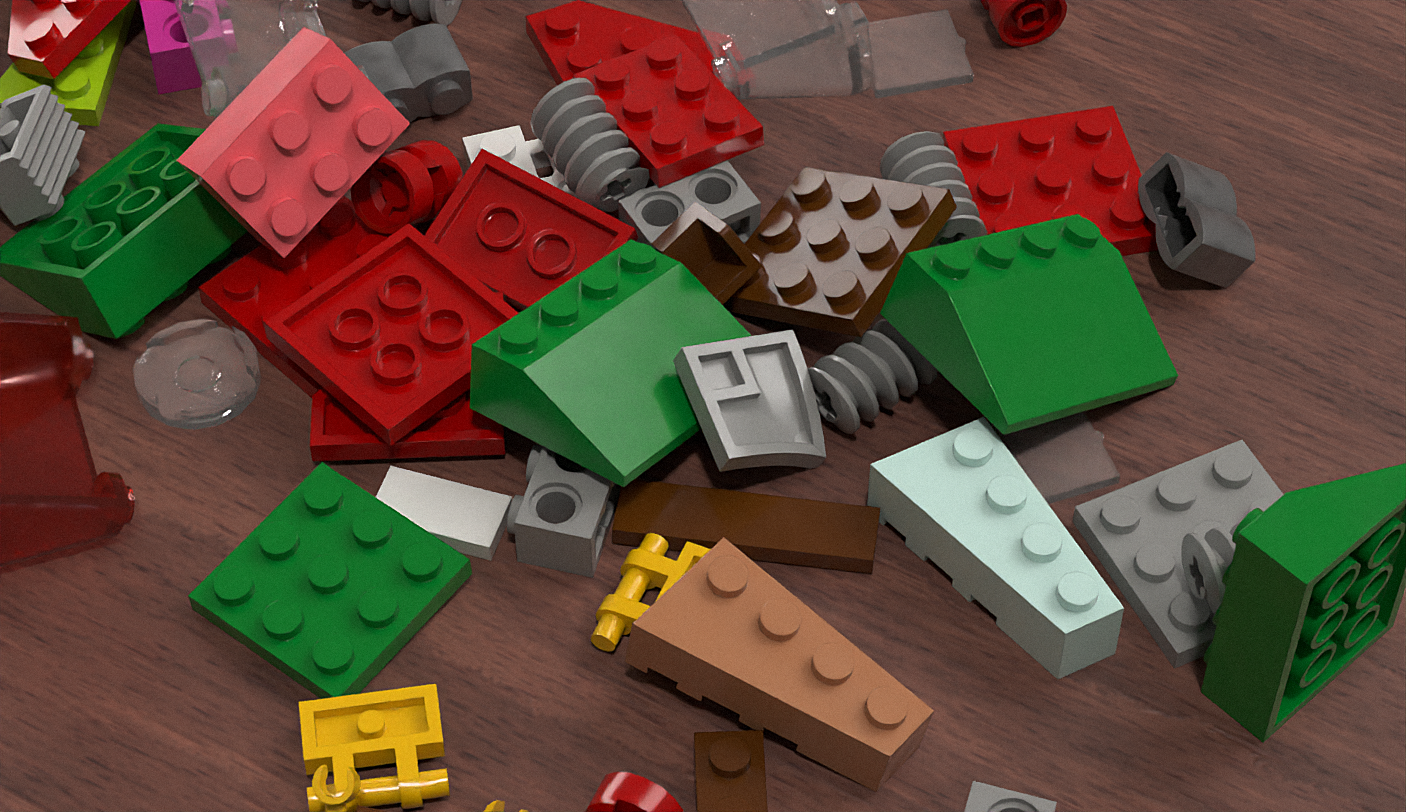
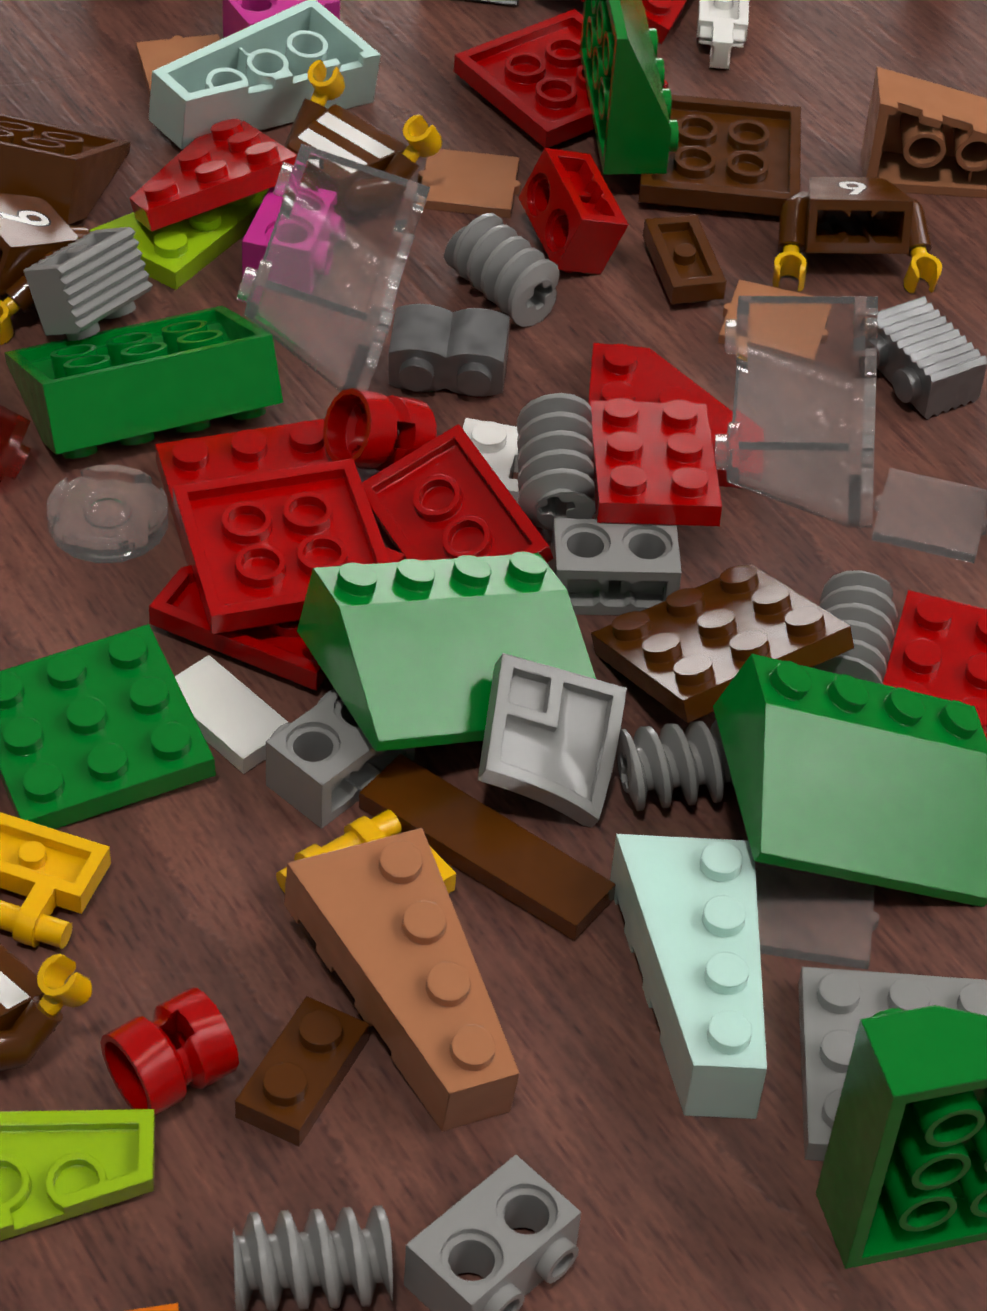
camera: 25 degrees right, 5 degrees down
(294, 141) = (286, 346): coral brick -> none
(708, 251) = (600, 594): reddish brown panel -> none

